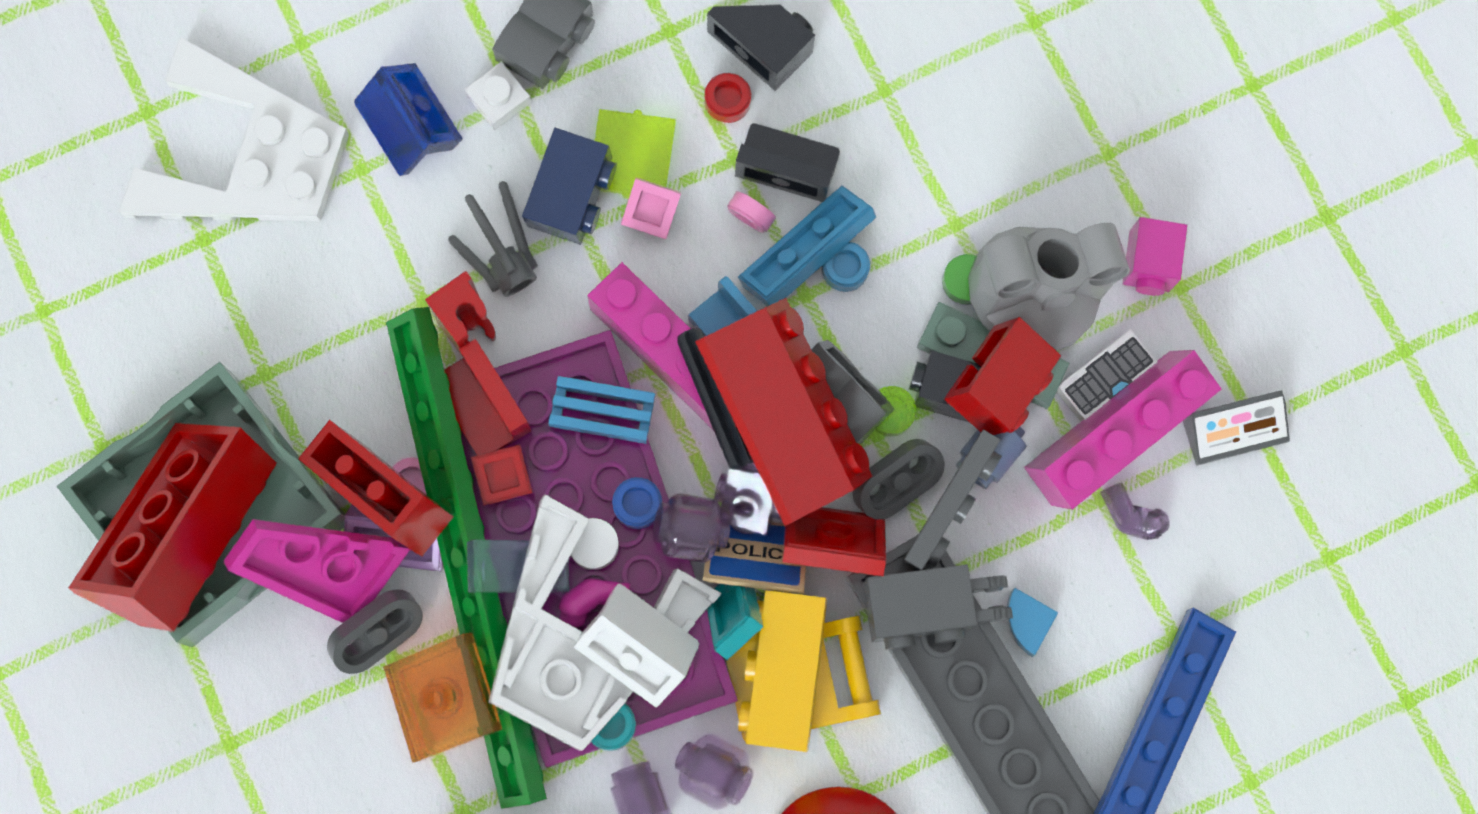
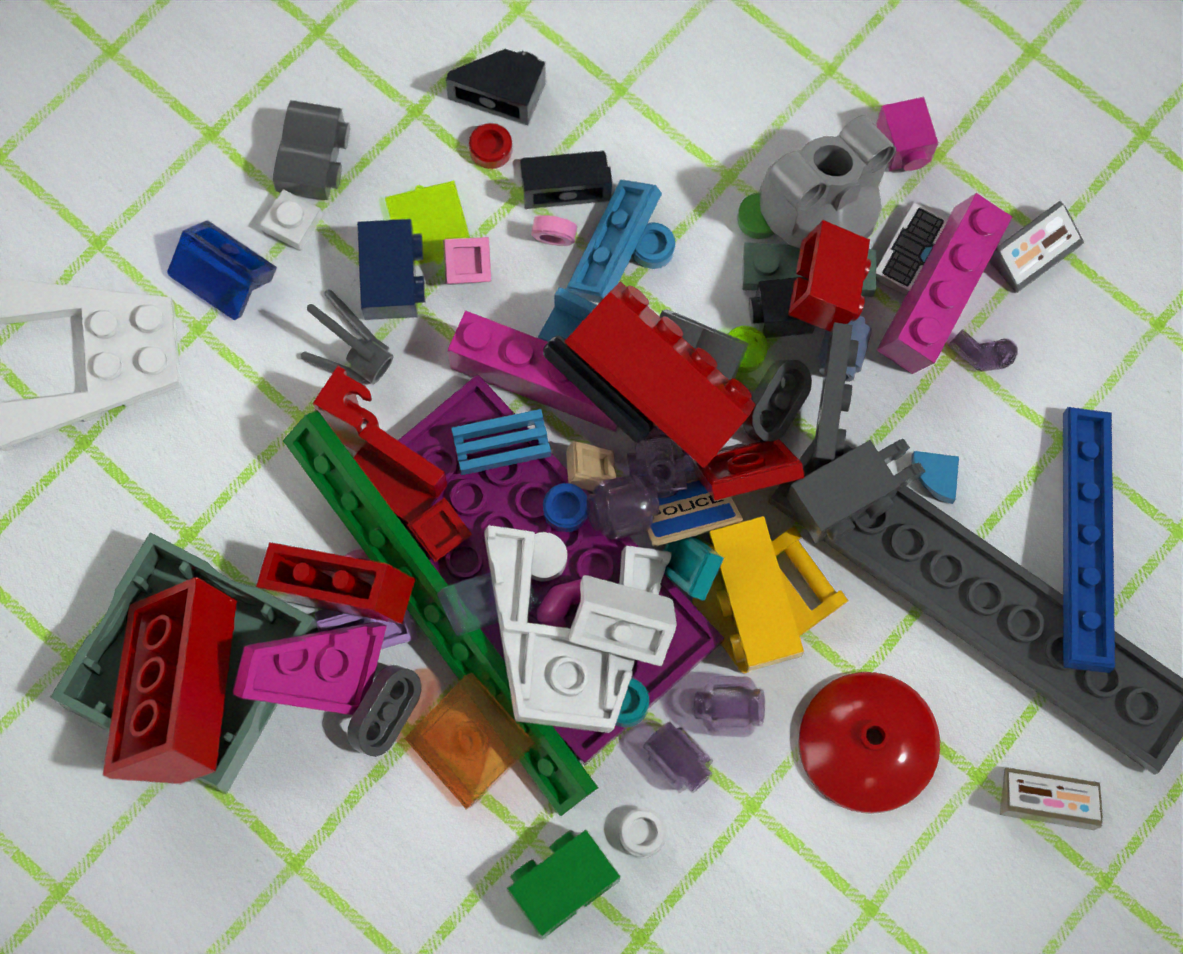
camera: 20 degrees left, 5 degrees down
(681, 469) = (589, 465): none -> tan tile

